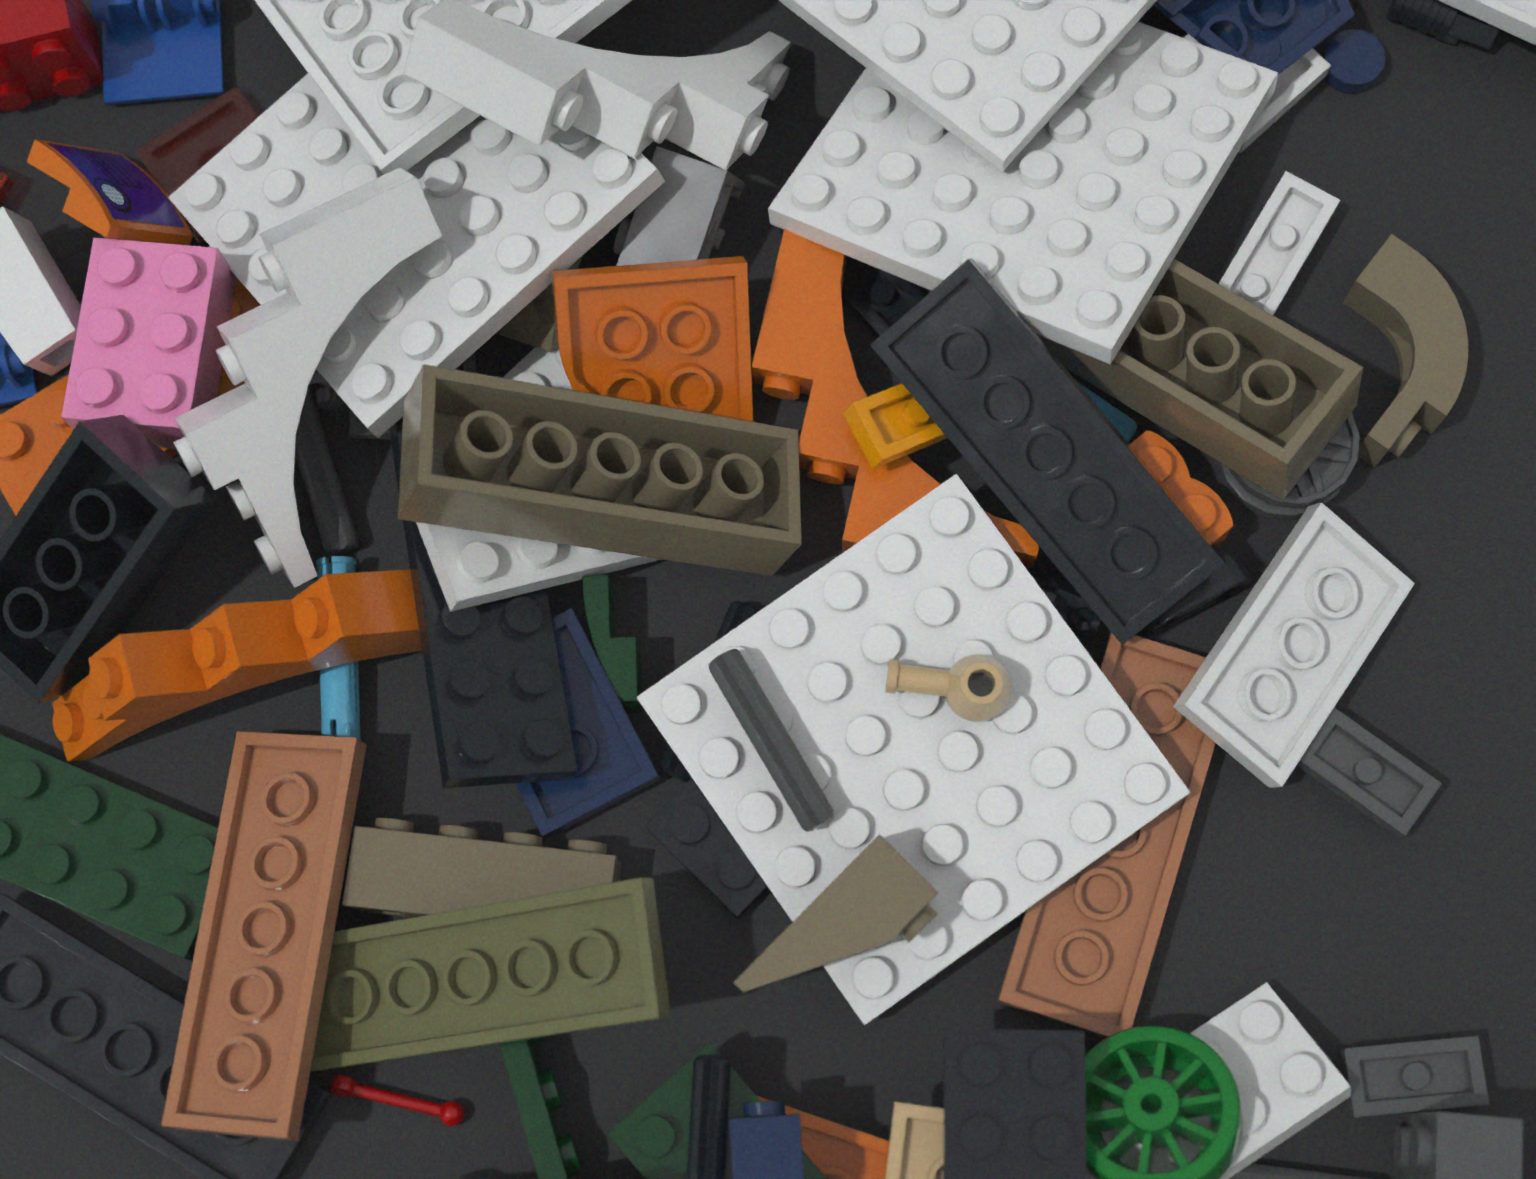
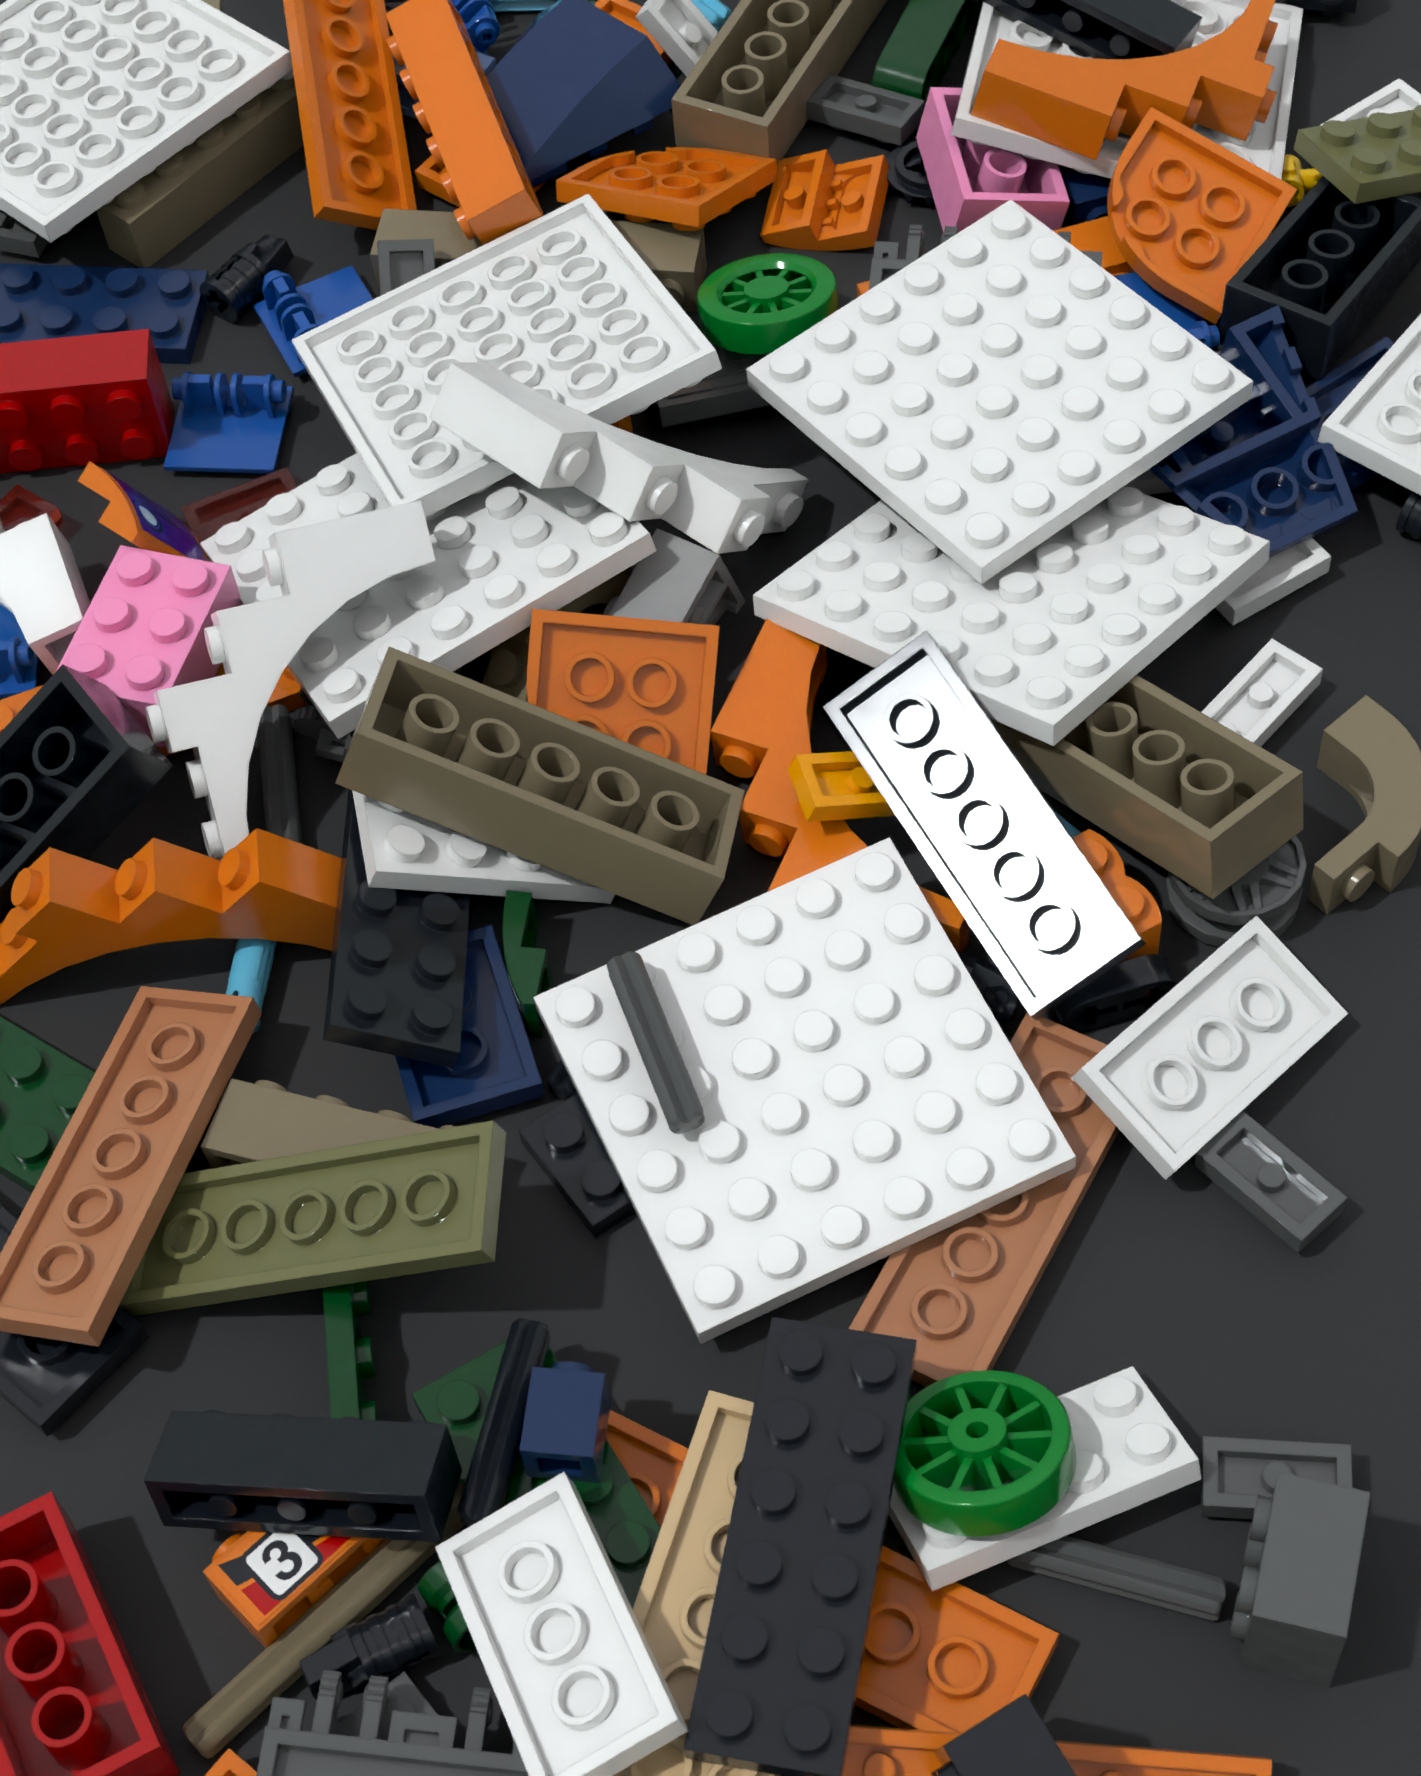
camera: 10 degrees right, 20 degrees down
(450, 1113) = (162, 1332): red hinge -> none
(855, 913) = (694, 1212): dark tan slope -> none
(954, 685) = (860, 1033): tan bar -> none
(1354, 60) = (1357, 561): dark blue tile -> none

